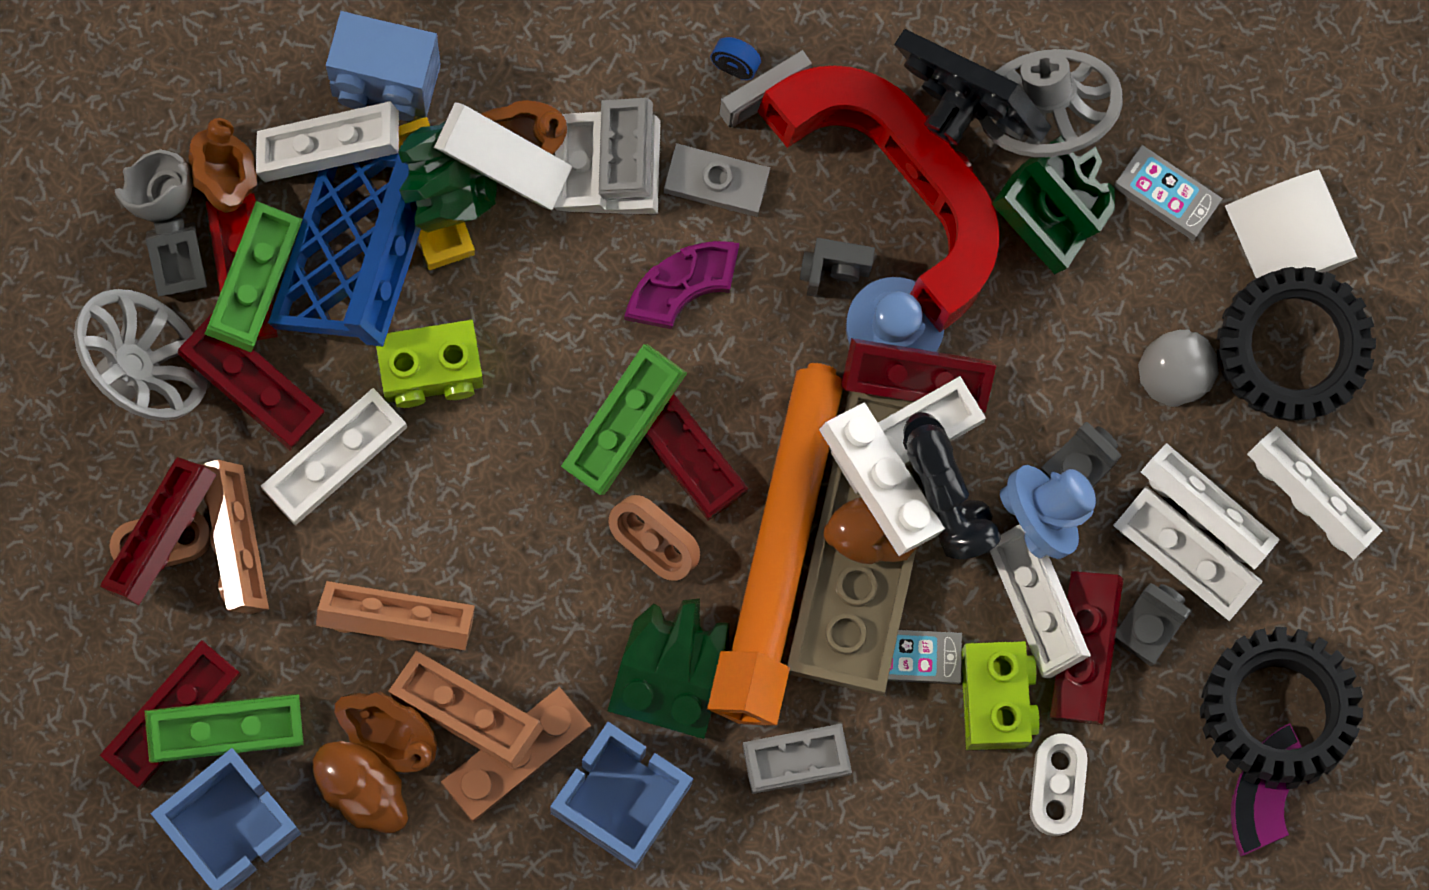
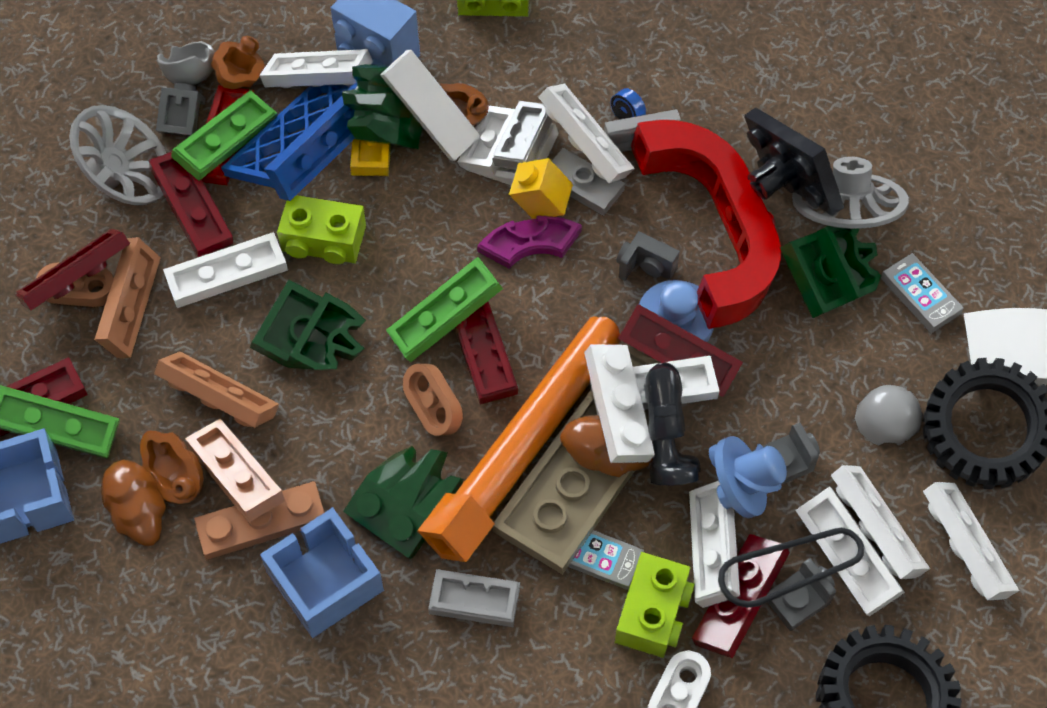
camera: 30 degrees right, 15 degrees down
(470, 501) = (308, 330): none -> dark green plate
(676, 217) = (541, 188): none -> yellow brick
(705, 125) = (585, 133): none -> white plate
(1152, 620) = (786, 545): none -> black piece

